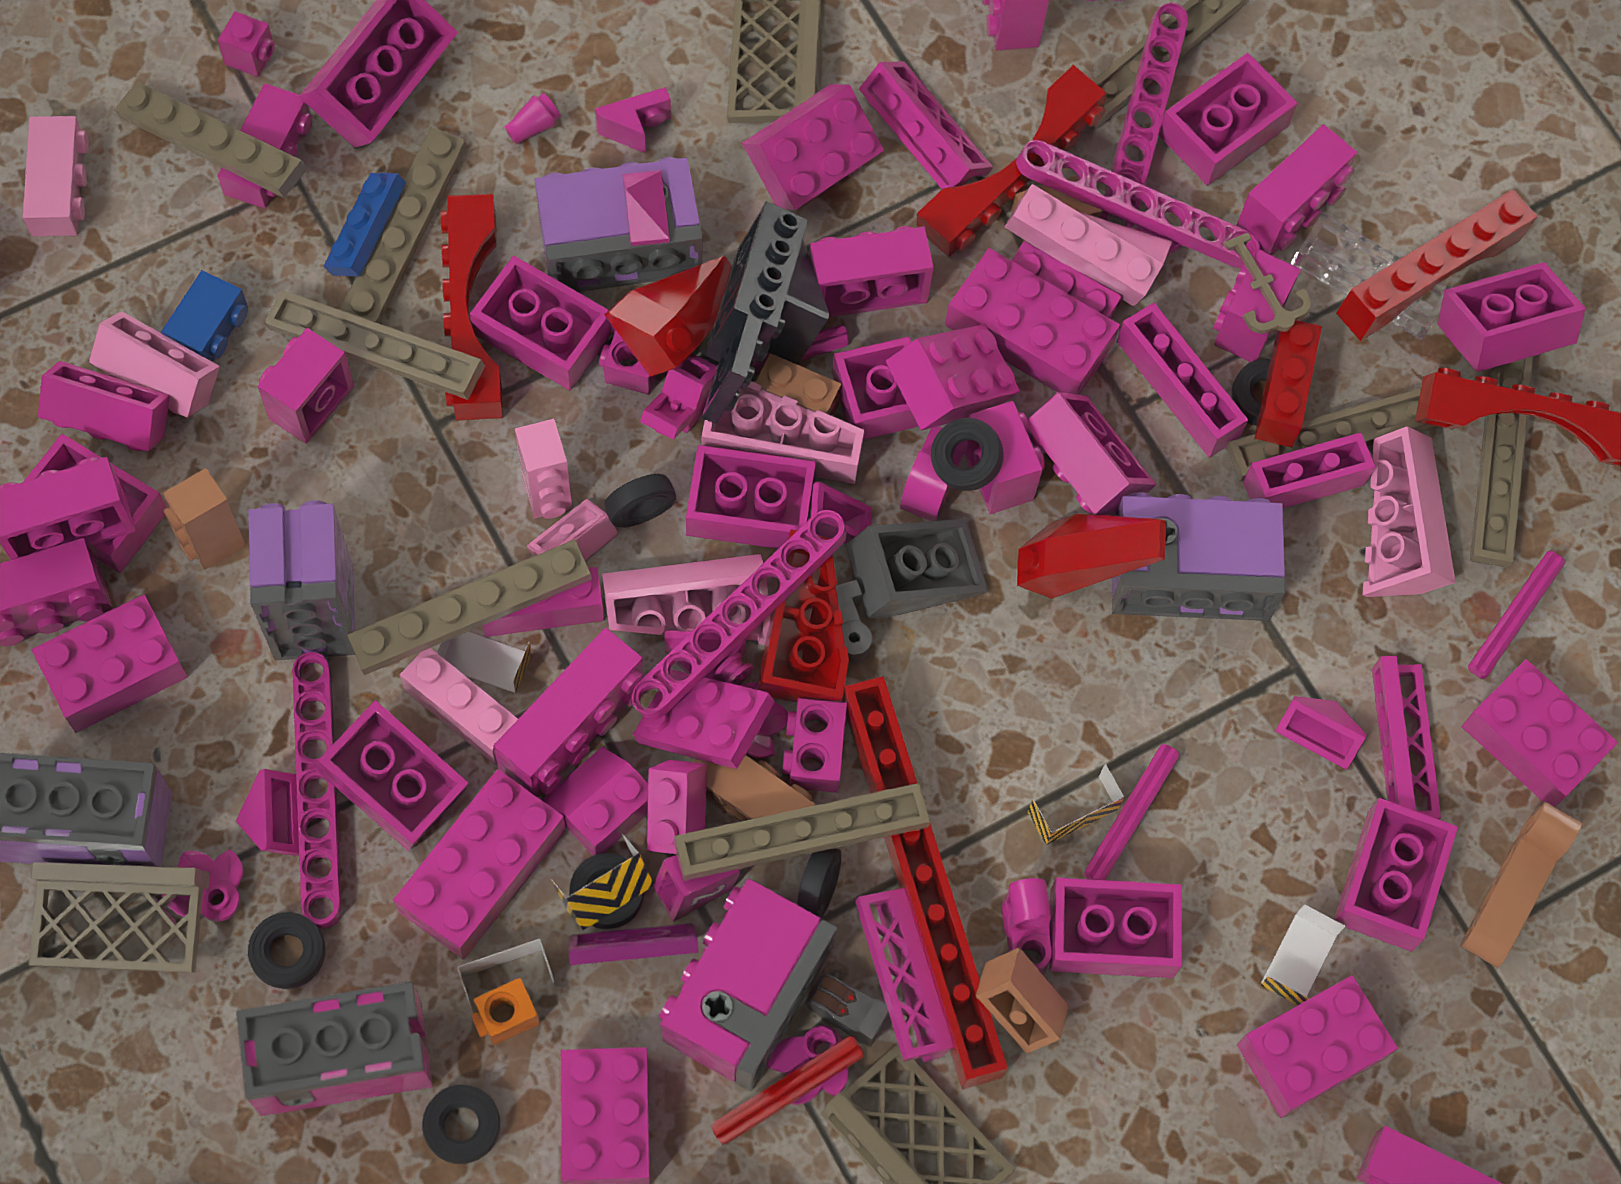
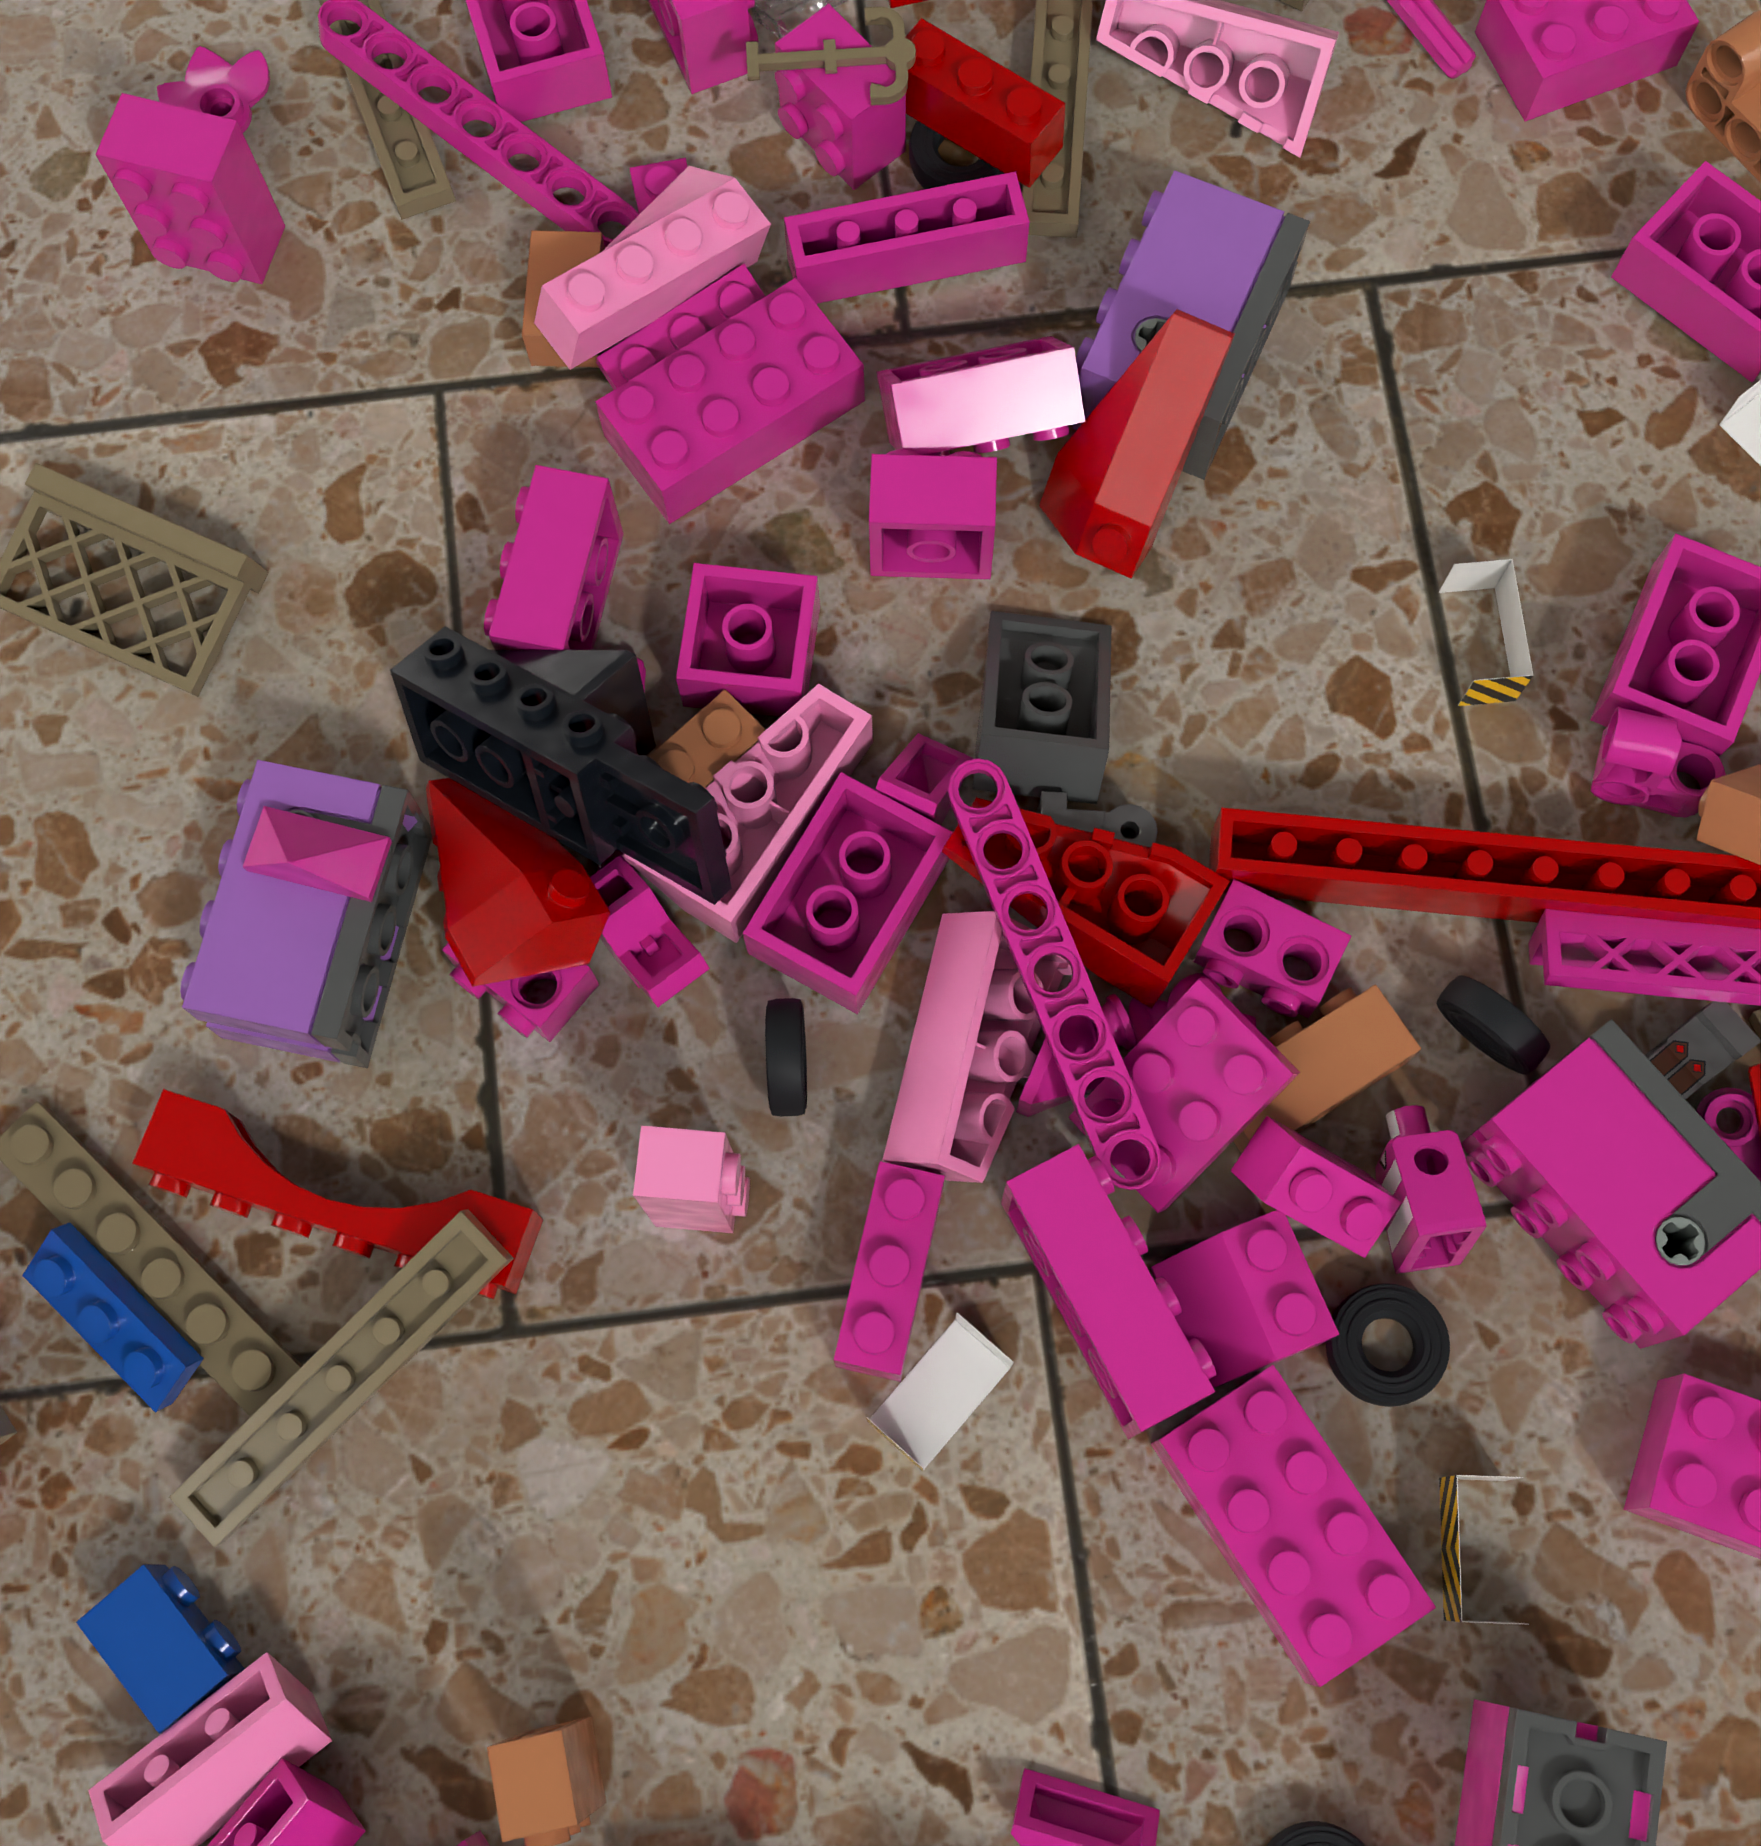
camera: 60 degrees left, 5 degrees up
(301, 580) = (733, 1649): piece -> none
(305, 385) = (364, 1517): dark pink brick -> none
(313, 808) = (1092, 1766): dark pink beam -> none
(391, 775) = (1108, 1616): dark pink brick -> none
(434, 1124) = (1731, 1694): black tyre -> none
(457, 701) = (1016, 1458): bright pink brick -> none
(469, 607) = (880, 1388): dark tan plate -> none
(509, 994) = (1560, 1550): orange brick -> none
(533, 118) = (52, 980): dark pink cone -> none
(541, 322) = (418, 1096): dark pink brick -> none
(585, 524) = (793, 1186): bright pink slope -> none
(608, 891) = (1411, 1335): sticker -> none
(624, 119) = (124, 839): dark pink slope -> none
(632, 944) = (1509, 1335): magenta tile -> none
(801, 831) = (1443, 1019): dark tan plate -> none
(813, 146) = (311, 580): dark pink brick -> none
(923, 125) = (342, 424): dark pink fence -> none
(924, 490) = (920, 618): dark pink brick -> none
(952, 375) = (789, 526): dark pink brick -> none
(961, 210) = (421, 221): red arch -> none
(983, 471) = (942, 508): black tyre -> none
(1121, 206) = (603, 202): dark pink beam -> none
(1132, 813) = (1535, 588): dark pink axle -> none
(1311, 472) = (1114, 139): dark pink brick -> none
(1322, 729) = (1481, 279): dark pink slope -> none
(1395, 741) = (1529, 192): dark pink fence -> none

